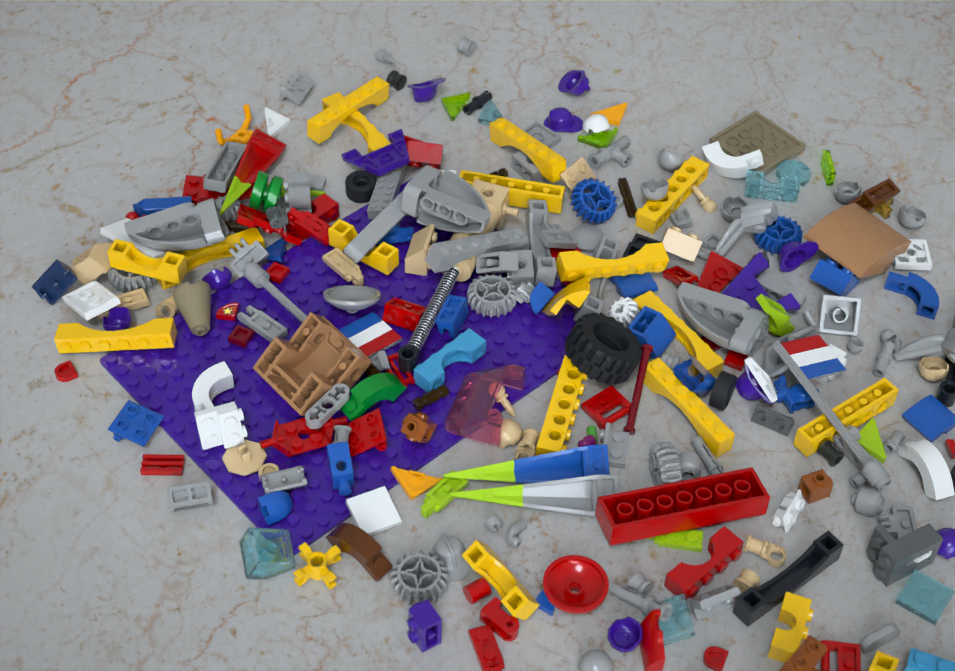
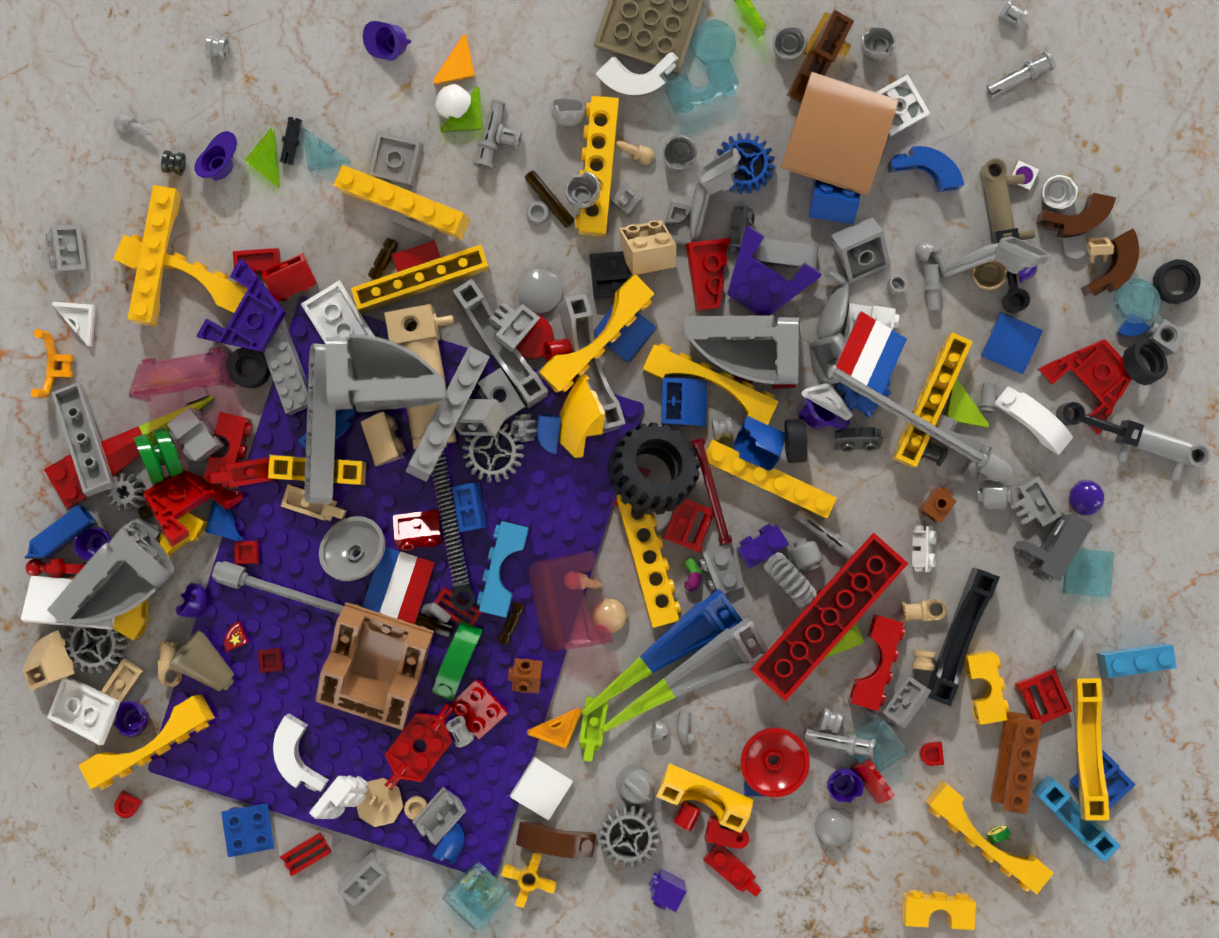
camera: 25 degrees left, 40 degrees up
(54, 282) = (29, 713): dark blue hinge -> none
(127, 257) = (110, 642): yellow arch -> none
(246, 254) = (201, 554): light grey hinge -> none
(259, 155) = (105, 393): red plate -> none
(262, 324) = (284, 635): light grey hinge -> none
(277, 217) = (203, 493): dark grey hinge -> none
(293, 153) = (180, 374): none -> clear pink windscreen
(326, 414) = (428, 727): light grey beam -> none
(340, 467) = (478, 766): blue torso -> none
(527, 445) = (639, 623): tan connector -> none
(563, 121) = (408, 111): dark purple piece -> none
(576, 173) = (488, 214): tan hinge -> none
(598, 199) = (511, 224): blue gear -> none
(624, 310) = (646, 384): white gear -> none
(646, 437) = (762, 546): none -> dark purple brick
(680, 275) = (686, 303): red tile -> none
(778, 317) = (804, 310): lime slope -> none
(795, 254) = (774, 192): dark purple piece -> none

